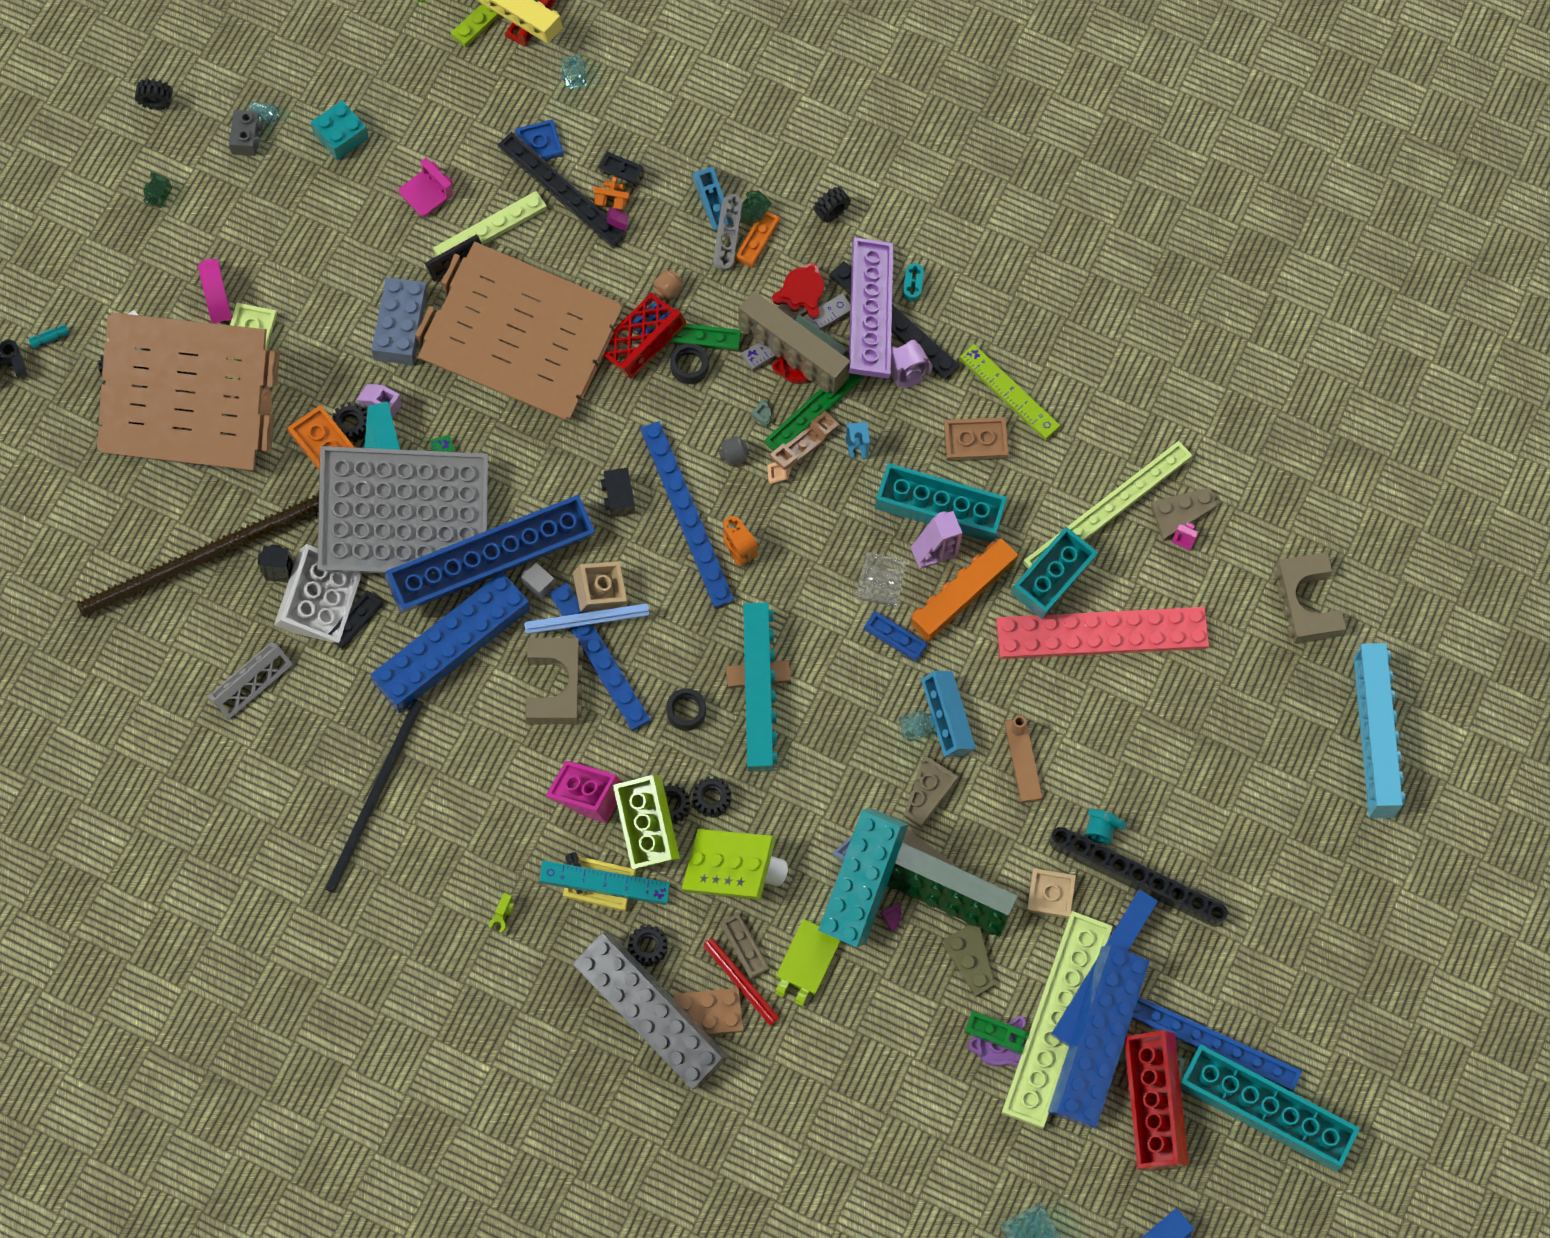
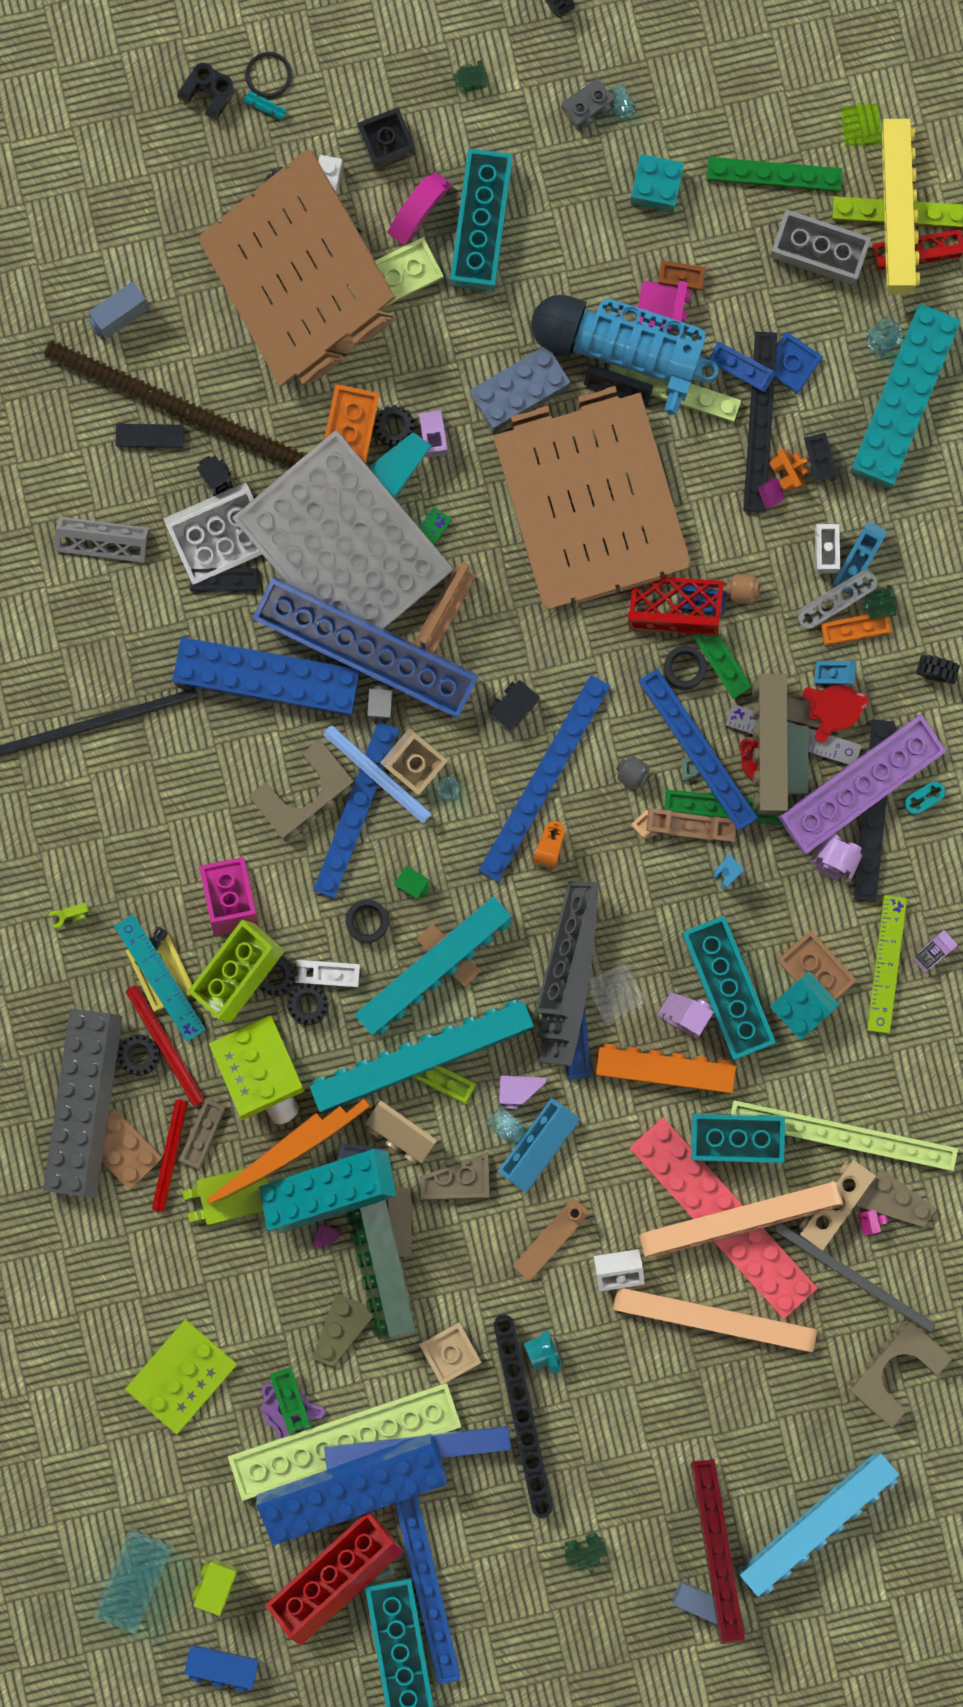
camera: 55 degrees right, 15 degrees up
(48, 319) = (265, 54): none -> black tyre
(99, 538) = (118, 311): none -> sand blue brick
(147, 273) = (386, 139): none -> black brick
(206, 590) = (149, 435): none -> black tile
(260, 256) = (481, 220): none -> teal brick
(388, 253) = (561, 325): none -> dark azure piece
(401, 58) = (774, 174): none -> green plate
(411, 165) = (673, 272): none -> dark orange plate
(478, 63) = (820, 247): none -> light grey brick
(506, 481) = (445, 608): none -> medium nougat fence
(514, 171) = (742, 366): none -> blue tile
(626, 88) = (905, 396): none -> teal brick
(639, 587) = (449, 792): none -> clear light blue wheel
(661, 922) = (165, 1045): none -> red axle
(685, 657) = (412, 883): none -> green brick
(687, 211) = (827, 548): none -> white brick
(701, 765) = (328, 973): none -> white plate
(754, 397) = (698, 750): none -> blue plate
(777, 270) = (835, 673): none -> dark azure slope
(809, 874) = (291, 1148): none -> orange slope
(817, 743) = (421, 1057): none -> teal brick
(842, 599) = (567, 975): none -> dark grey slope
(843, 748) = (447, 1083): none -> lime tile
(848, 801) = (400, 1133): none -> tan slope
(895, 699) = (517, 1090): none -> lavender slope
(913, 1102) = (181, 1376): none -> lime plate
(995, 461) = (804, 1005): none -> teal brick
(1026, 352) = (934, 951): none -> leg
(1084, 727) = (619, 1270): none -> white brick
(1094, 1195) = (215, 1586): none -> lime brick
(1115, 616) = (741, 1220): none -> light nougat beam
(1149, 519) = (862, 1179): none -> tan brick
(1171, 692) = (715, 1319): none -> light nougat beam
(1218, 572) = (855, 1278): none -> dark grey tile
(1278, 911) = (575, 1555): none -> clear green hips
(1347, 810) = (717, 1552): none -> dark red plate
(1377, 853) = (694, 1601): none -> sand blue brick

